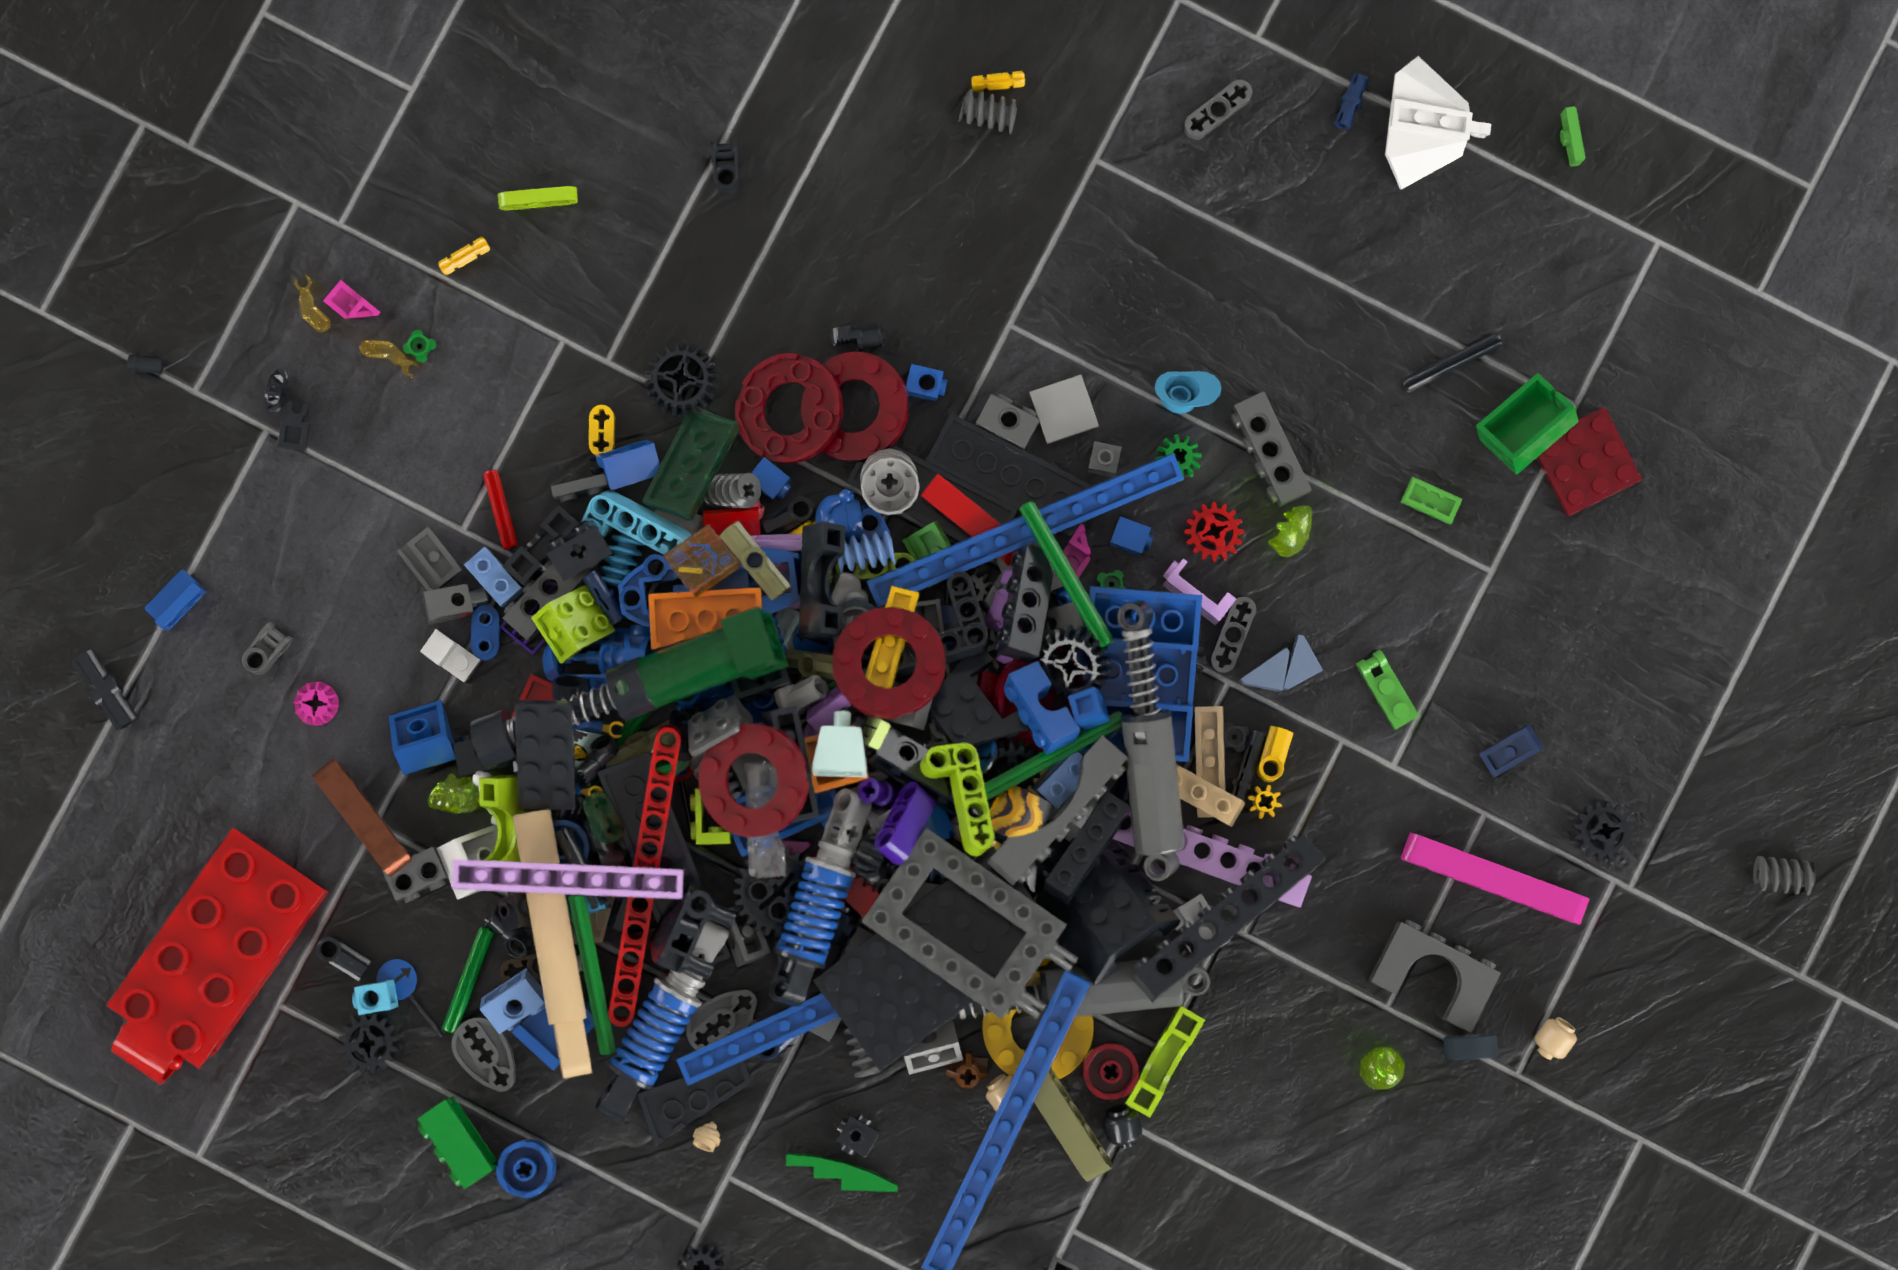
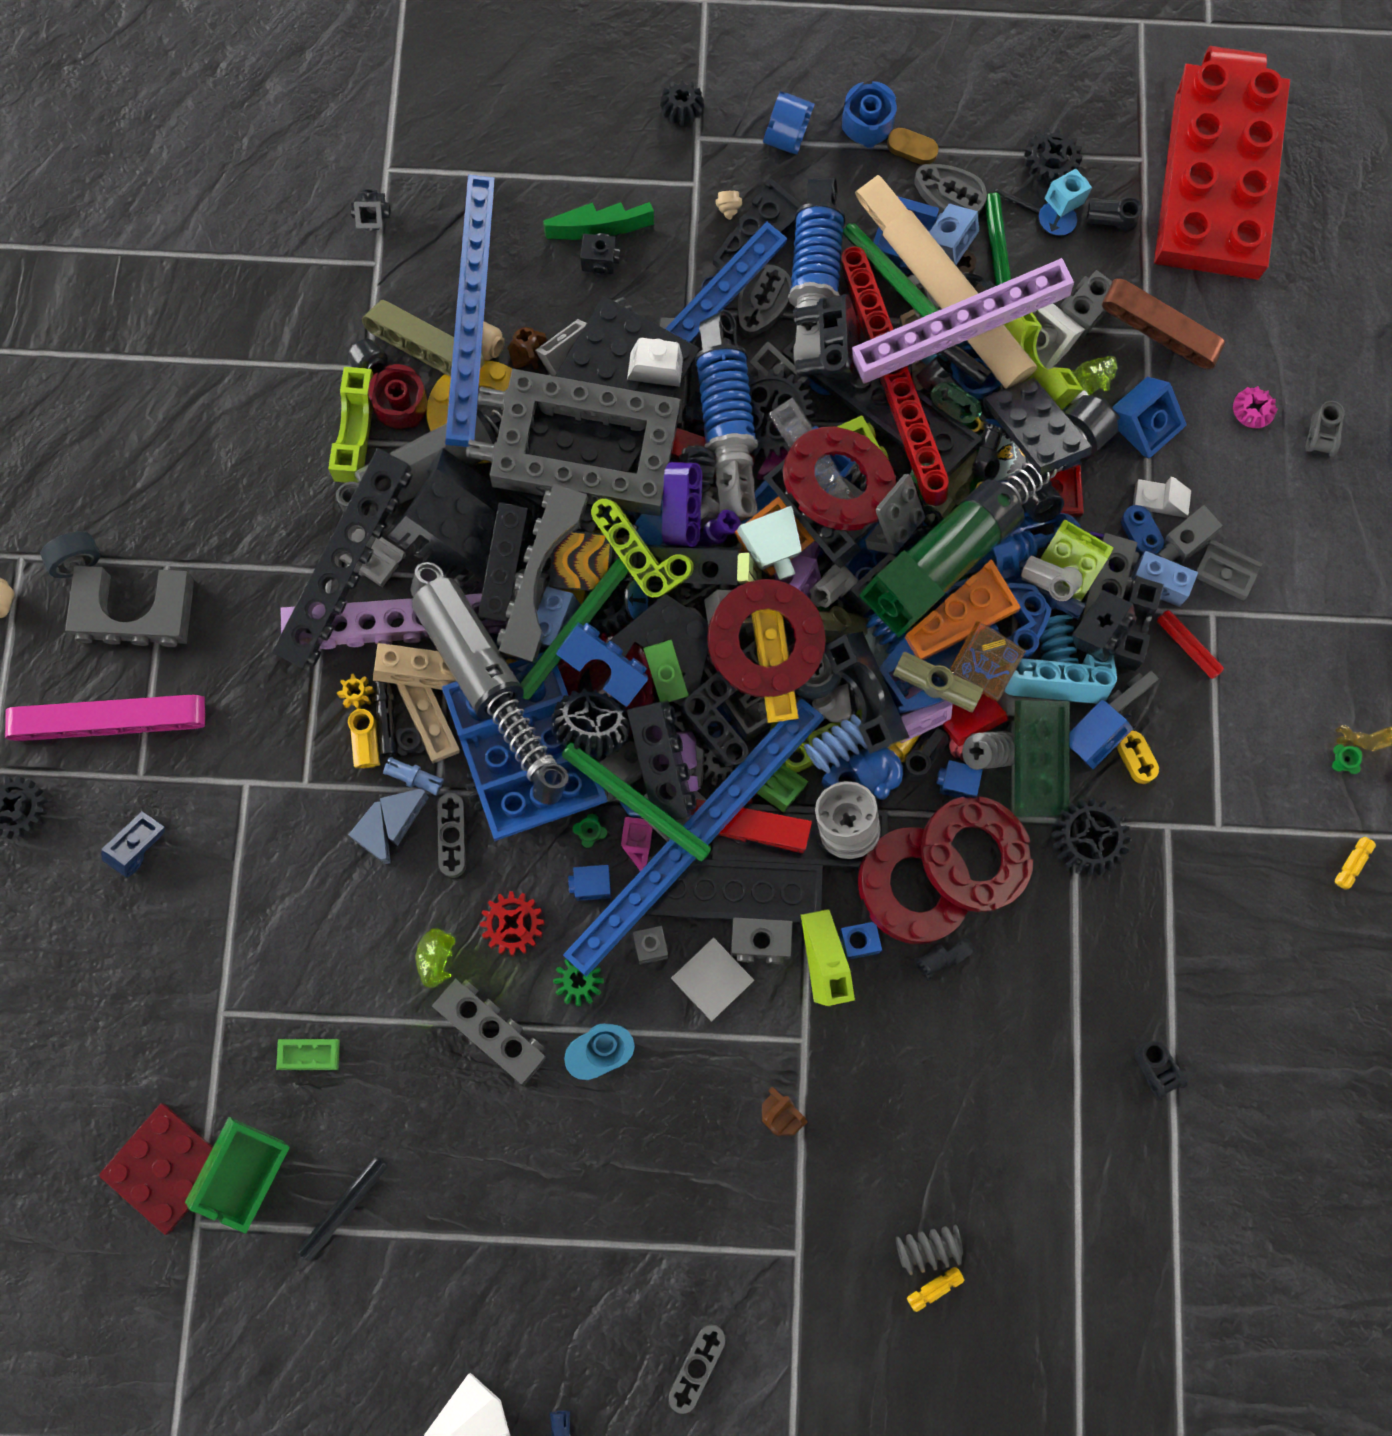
camera: 155 degrees right, 10 degrees down
(457, 1142) = (937, 106): green piece -> none
(498, 1119) = (912, 146): none -> pearl gold tile
(537, 198) = (1319, 950): lime beam -> none
(598, 603) = (1050, 578): none -> light grey piece
(612, 1191) = (788, 122): none -> blue brick
(865, 973) = (656, 362): none -> white torso
(962, 377) = (826, 960): none -> lime slope
(987, 680) = (666, 671): none -> bright green plate
(1059, 271) = (781, 1115): none -> reddish brown piece
(1089, 708) = (556, 682): blue brick -> none
(1208, 609) = (482, 842): lavender panel -> none
(1244, 702) = (413, 776): none -> medium blue pin
(1382, 1068) = (148, 507): clear neon green hair -> none
(1387, 690) = (278, 849): bright green plate -> none

